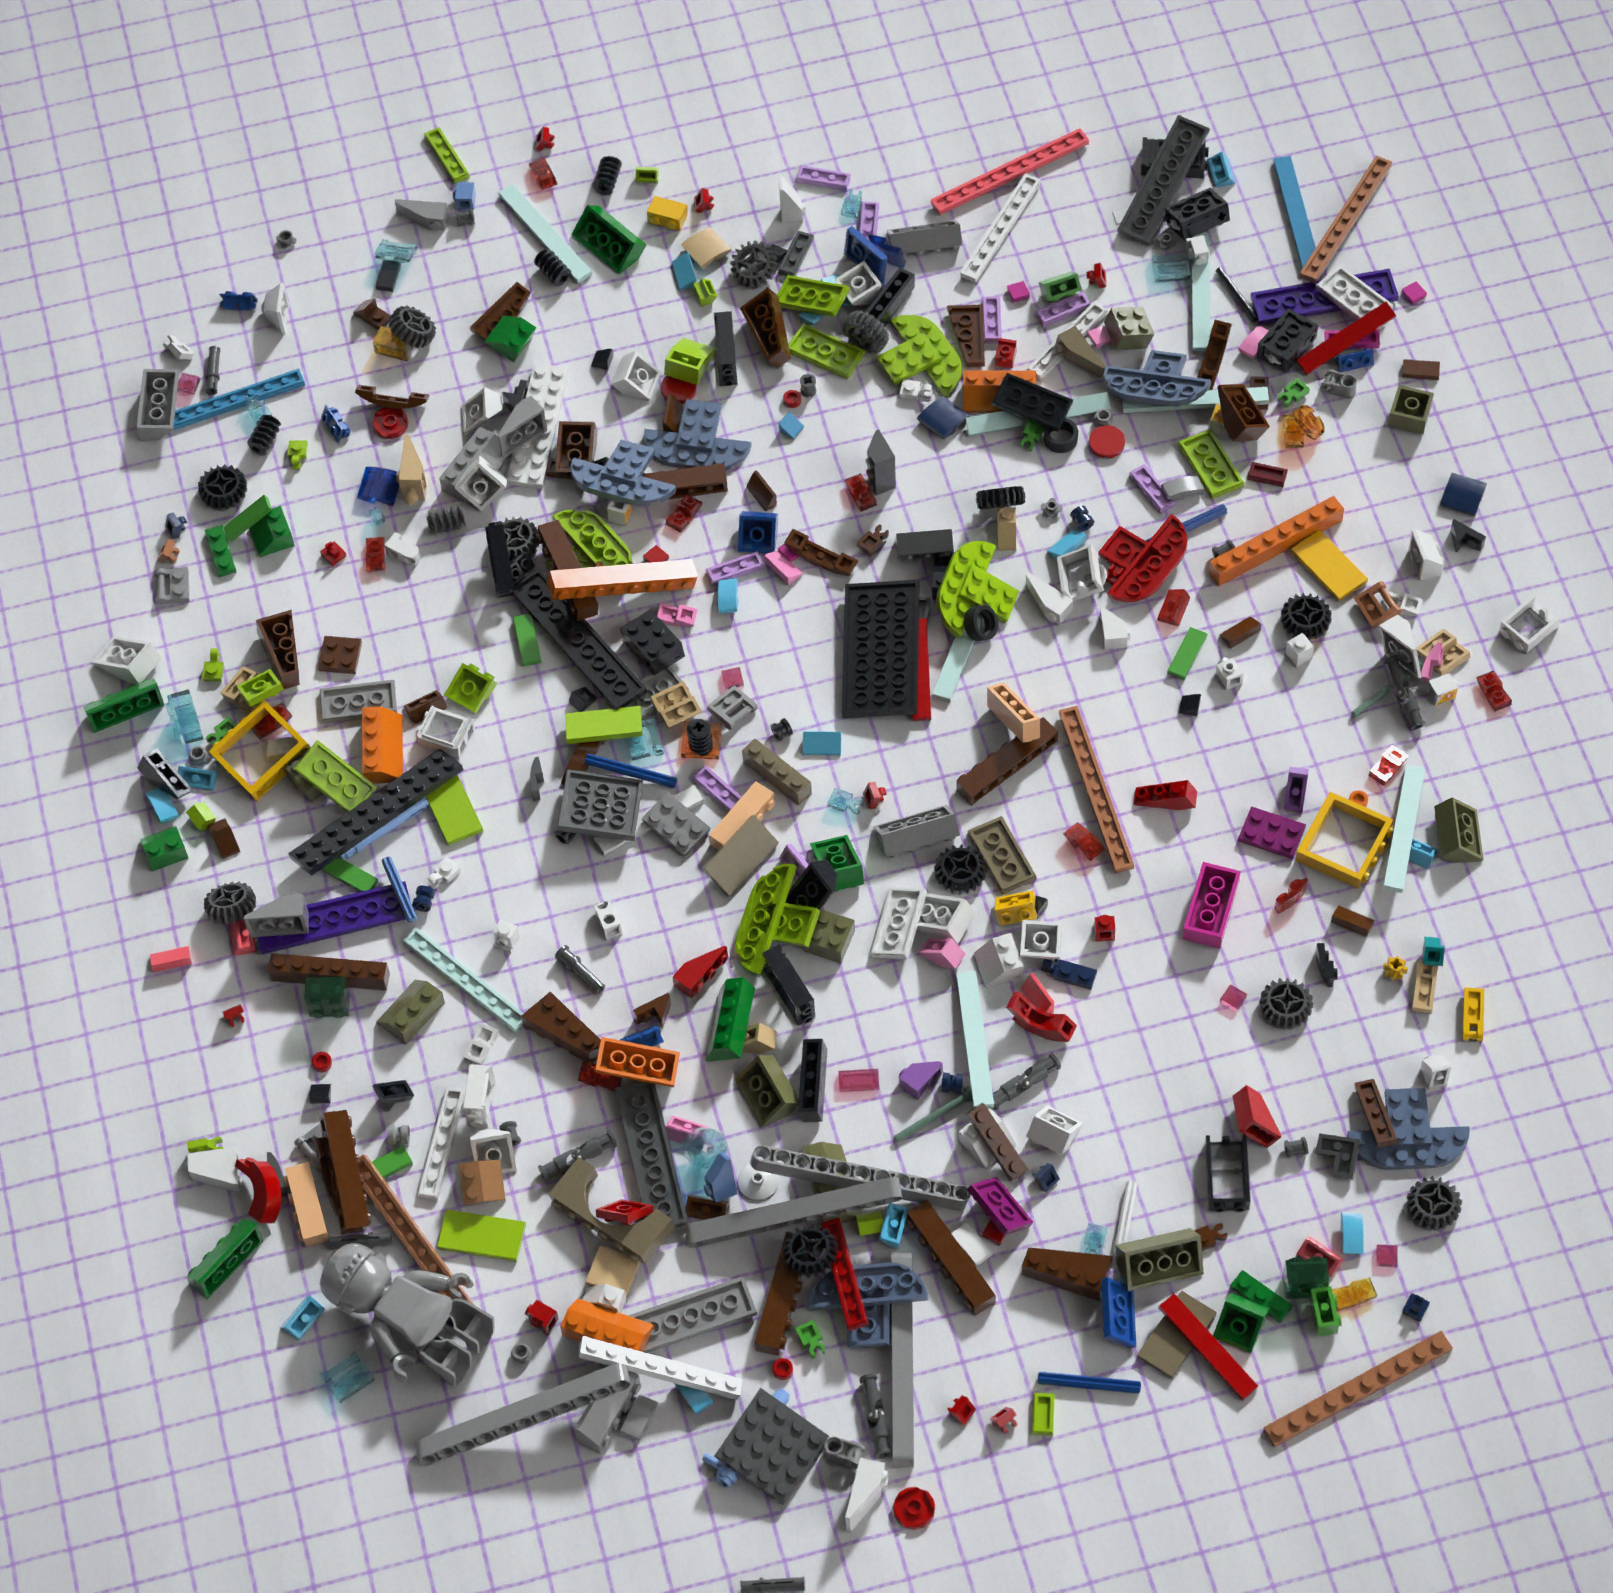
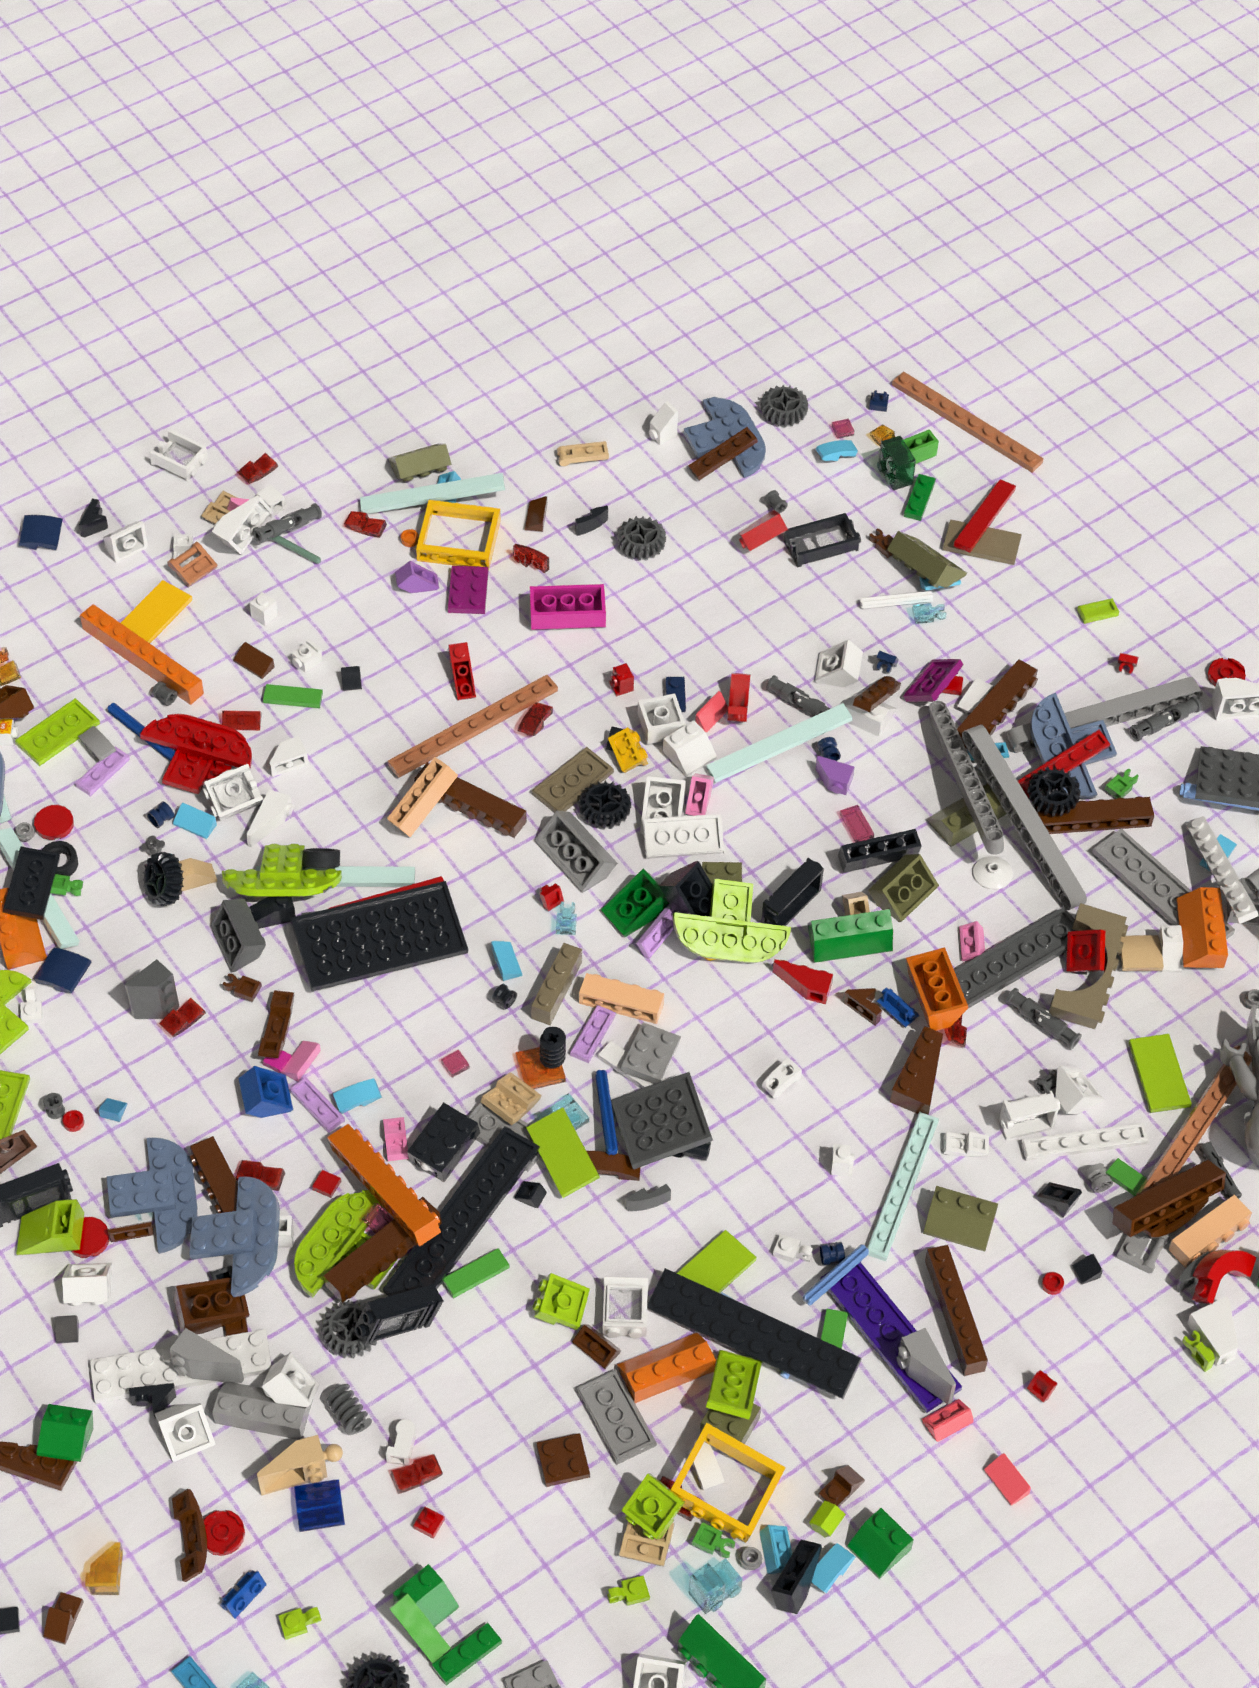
camera: 115 degrees left, 5 degrees down
(229, 902) = (920, 1443): dark grey gear -> none
(264, 434) = (287, 1666): black piece -> none
(279, 644) = (581, 1520): reddish brown wedge -> none
(327, 997) = (989, 1293): clear green brick -> none
(377, 515) = (364, 1489): clear light blue tile -> none
(412, 326) = (81, 1548): dark grey gear -> none
(481, 1182) = (1115, 1086): medium nougat slope -> none
(542, 1316) = (1213, 991): red brick -> none
(574, 964) = (844, 1091): dark grey pin -> none
(694, 1144) = (990, 909): clear light blue brick -> none
(705, 1207) = (1038, 901): reddish brown slope -> none
(720, 1179) = (1015, 888): medium blue slope -> none
(728, 703) = (492, 1053): light grey plate -> none
(740, 855) = (666, 983): dark tan tile -> none
(761, 491) = (210, 1107): reddish brown slope -> none
(782, 1369) = (1159, 799): red tile -> none
(845, 1452) = (1209, 730): light grey piece -> none
(966, 1096) = (864, 756): sand green piece -> none
(1003, 1417) = (1119, 631): red tile -> none
(1068, 1270) = (965, 615): reddish brown wedge -> none
(1089, 1382) = (1055, 587): blue axle -> none
(1118, 1313) = (990, 576): blue plate -> none
(1233, 998) = (649, 578): clear pink tile -> none
(1240, 1322) = (951, 500): green slope -> none
(1267, 474) = (58, 684): dark red tile -> none
(1296, 621) = (222, 614): black gear -> none
(1313, 1248) = (864, 468): coral slope -> none
(1345, 1153) = (766, 469): dark grey plate -> none
(1393, 963) = (574, 474): yellow gear -> none
(1433, 951) = (549, 450): teal brick -> none
(1473, 1013) = (596, 417): yellow plate -> none

